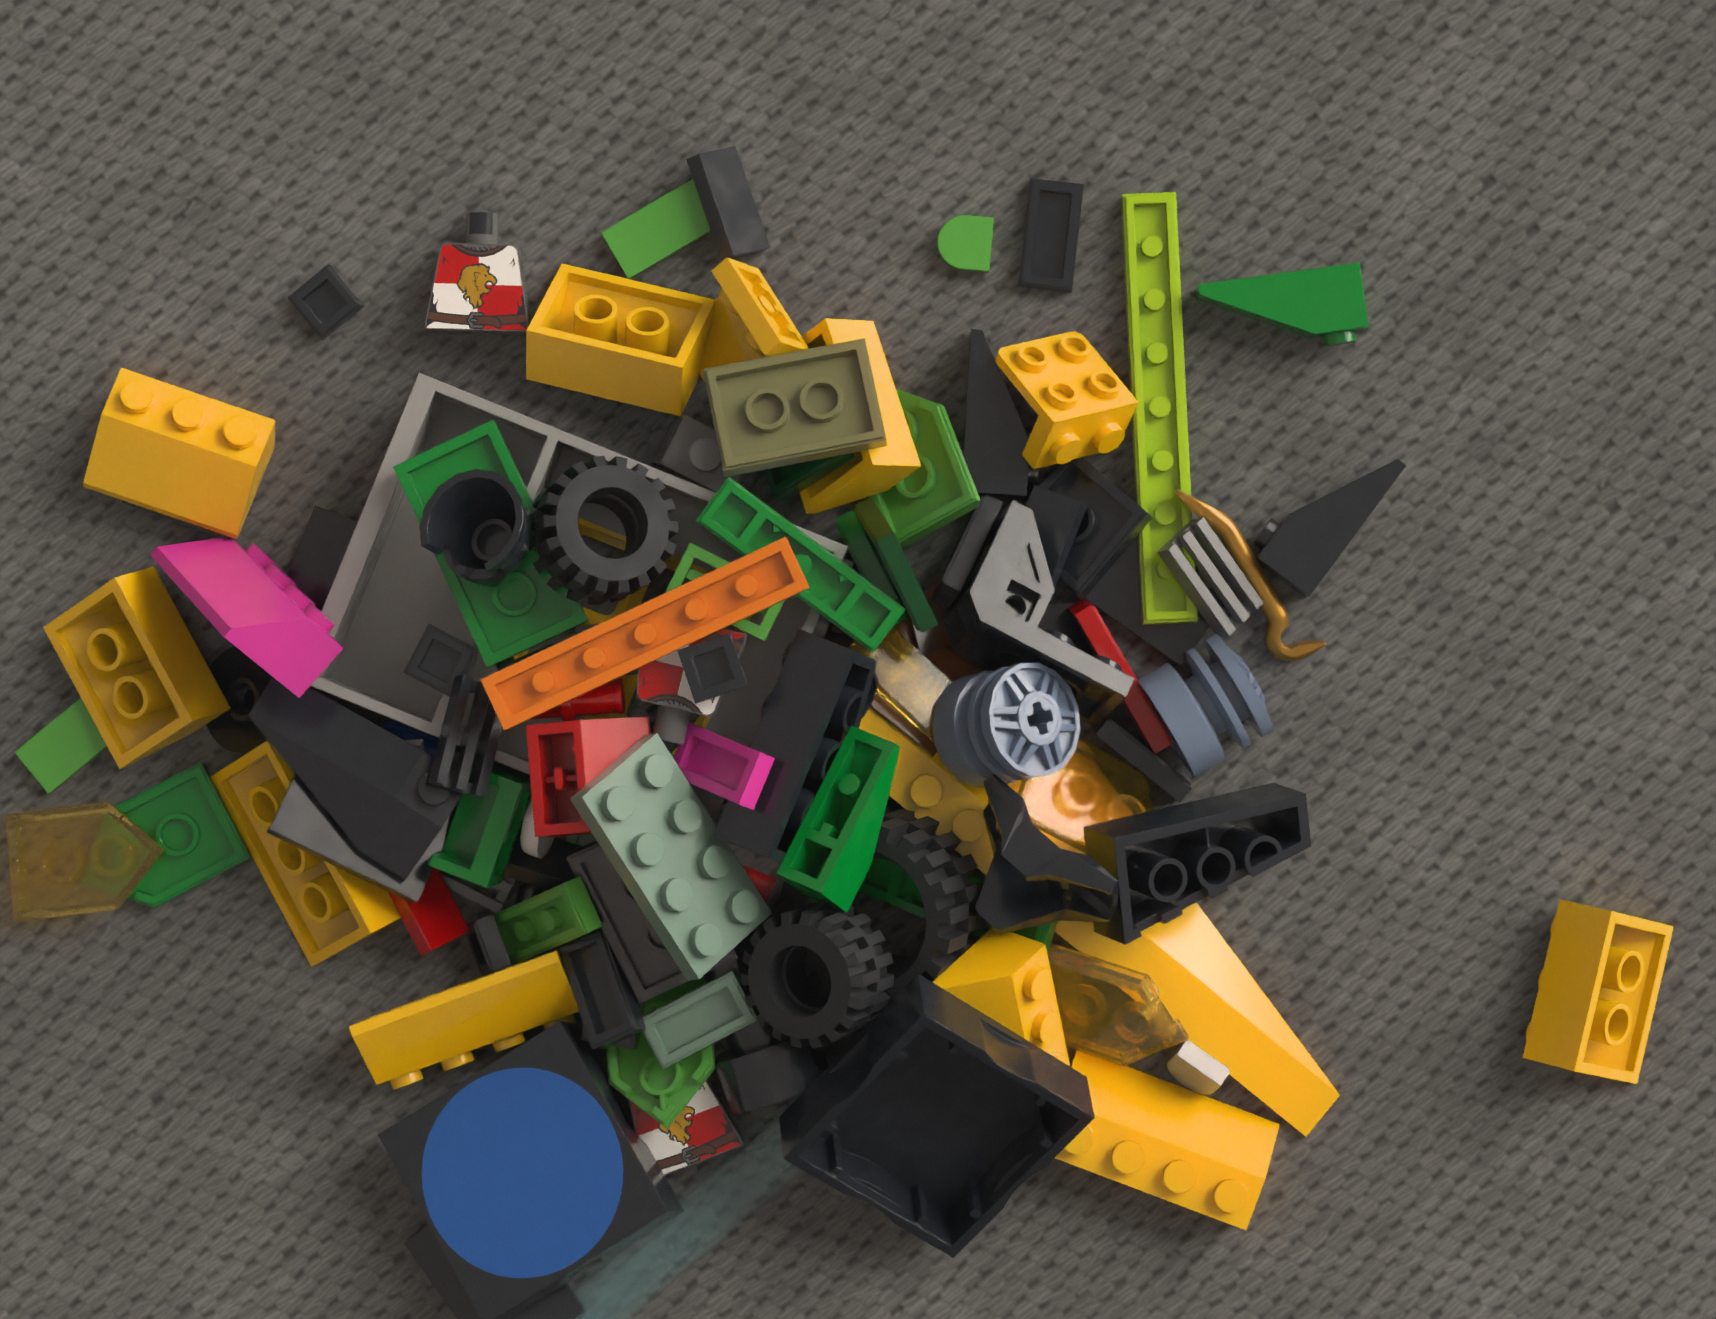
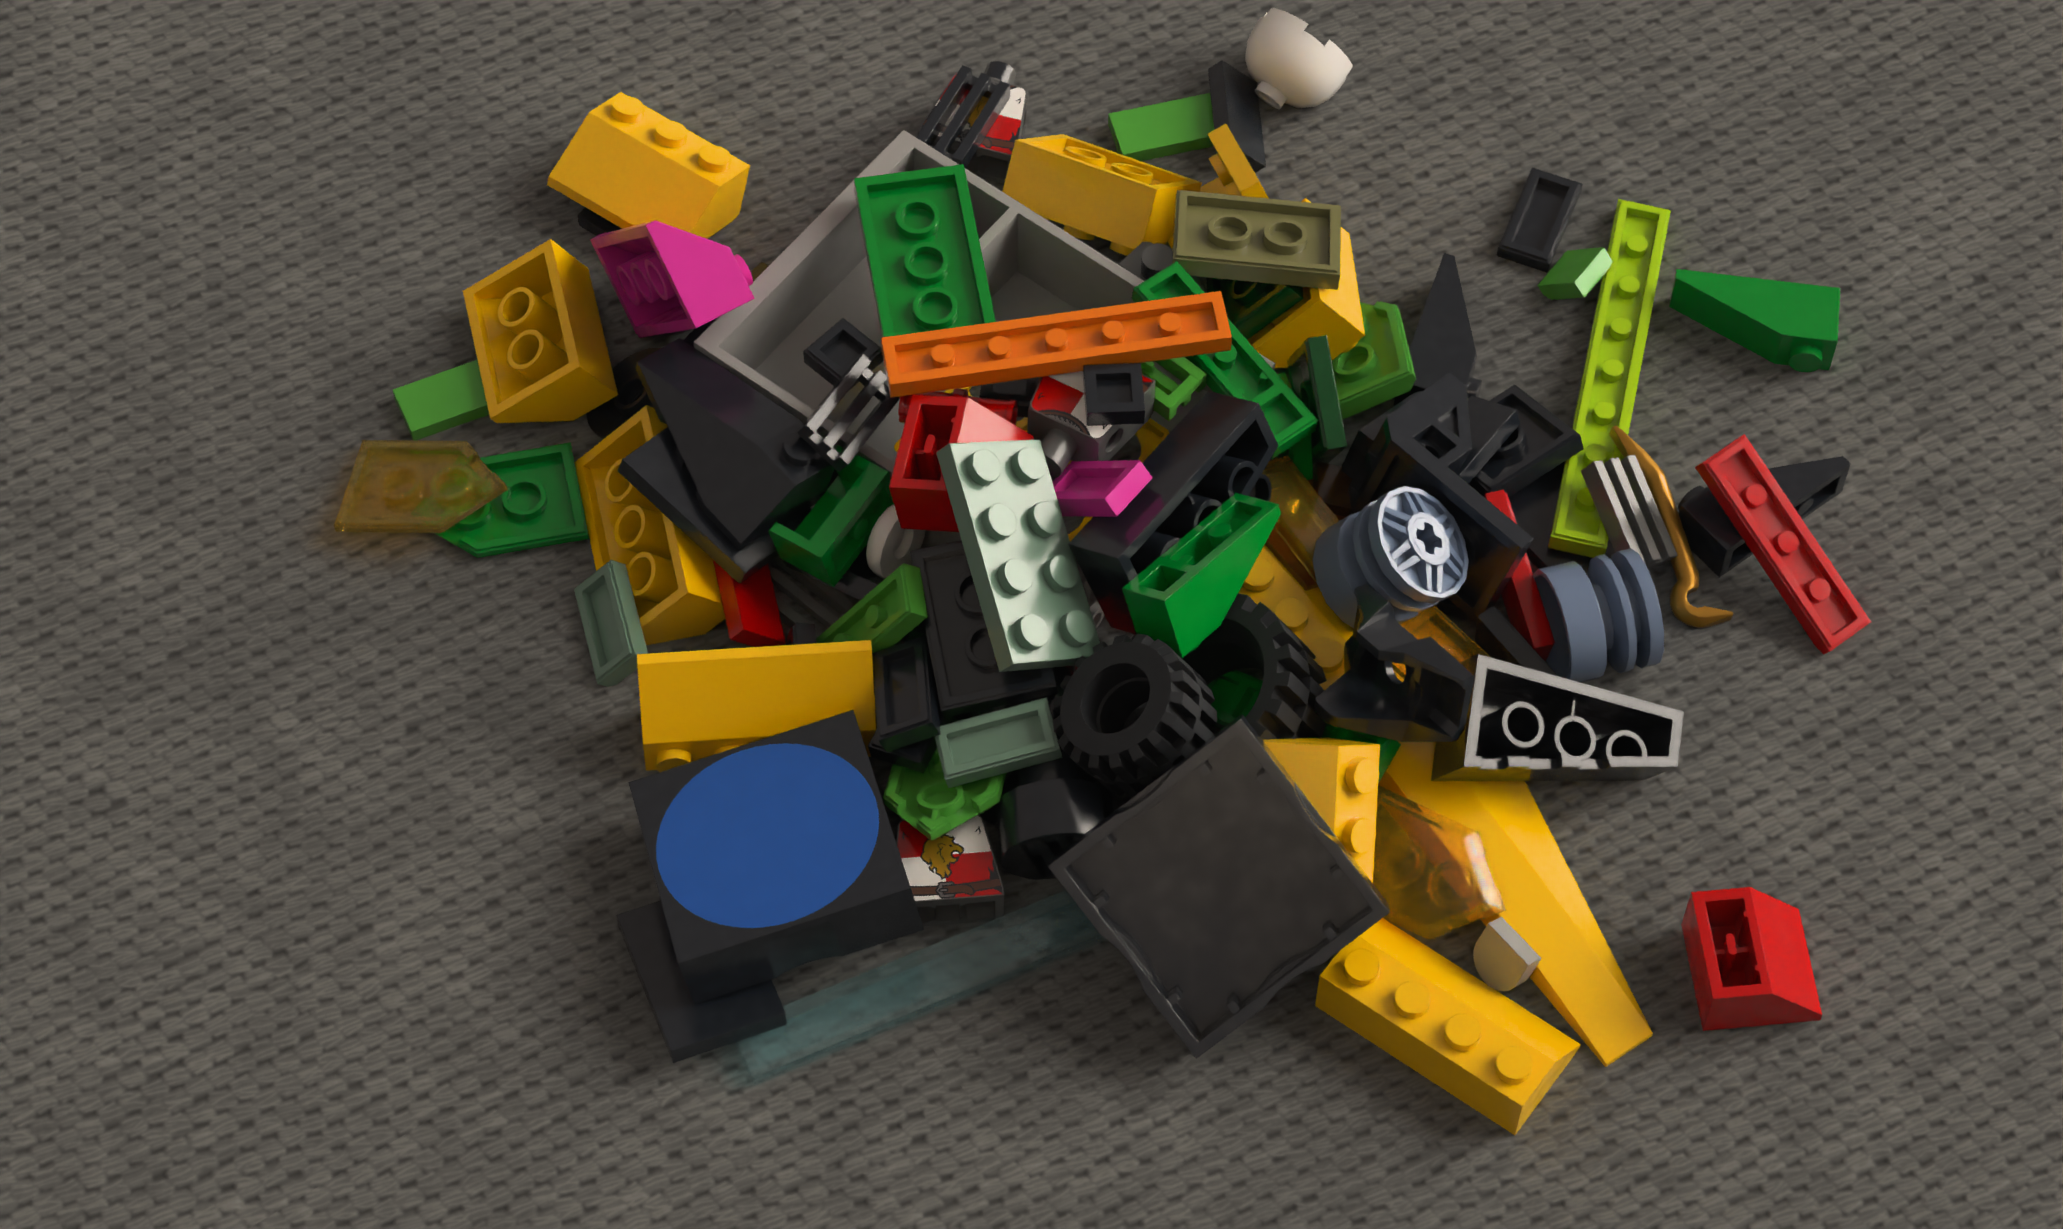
camera: 15 degrees right, 30 degrees down
(303, 951) = (610, 623): none -> sand green tile
(325, 302) = (829, 111): black tile -> none
(473, 263) = (978, 88): none -> black tile
(478, 526) = (924, 218): black helmet -> none
(637, 507) = (1039, 256): black tyre -> none
(768, 130) = (1293, 63): none -> white cylinder
(967, 243) = (1456, 206): bright green tile -> none
(1074, 393) = (1526, 339): yellow bracket -> none
(1100, 299) = (1575, 273): none -> bright green tile
(1359, 573) = (1783, 544): none -> red tile
(1414, 1013) = (1748, 960): none -> red slope
(1597, 992) = (1956, 993): yellow slope -> none

